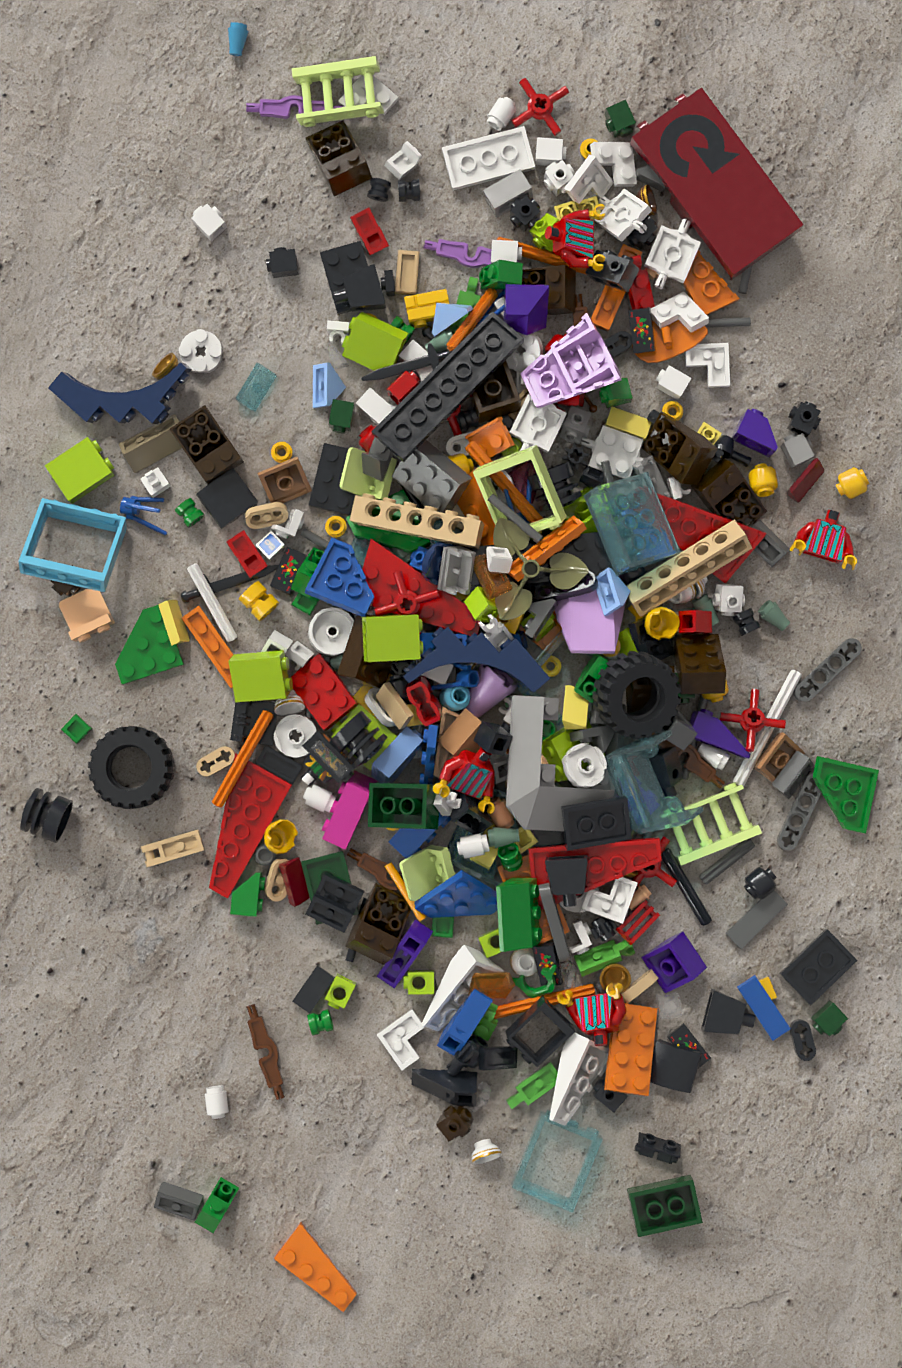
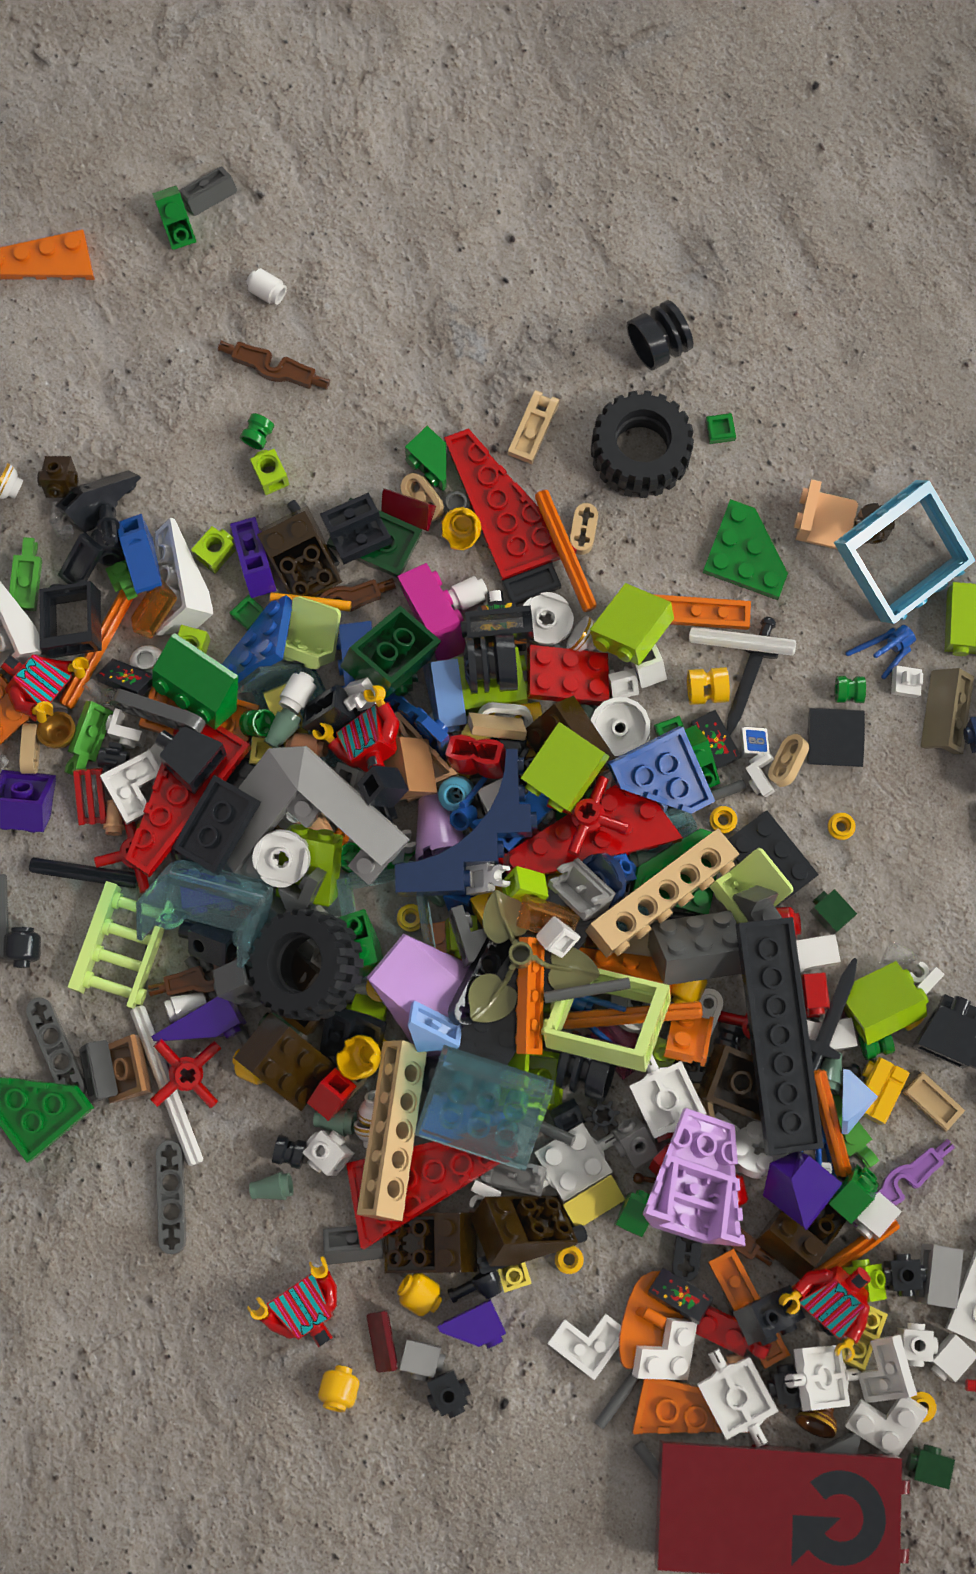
camera: 130 degrees right, 10 degrees down
(173, 622) = (747, 589): light yellow slope -> none
(206, 444) = (906, 756): dark brown slope -> none
(246, 553) = (764, 713): red slope -> none
(246, 716) = (602, 585): black hinge -> none
(256, 387) = (929, 853): clear light blue slope -> none
(285, 481) = (808, 804): medium nougat slope -> none
(313, 989) = (293, 451): black tile -> none
(326, 385) = (875, 924): light blue slope -> none
(387, 283) = (936, 1070): black plate -> none
(396, 1038) = (181, 487): white plate -> none
(534, 992) = (112, 647): green helmet -> none
(574, 710) = (344, 893): light yellow slope -> none
(672, 382) = (599, 1284): white brick -> none
(726, 861) = (72, 932): dark grey axle -> none

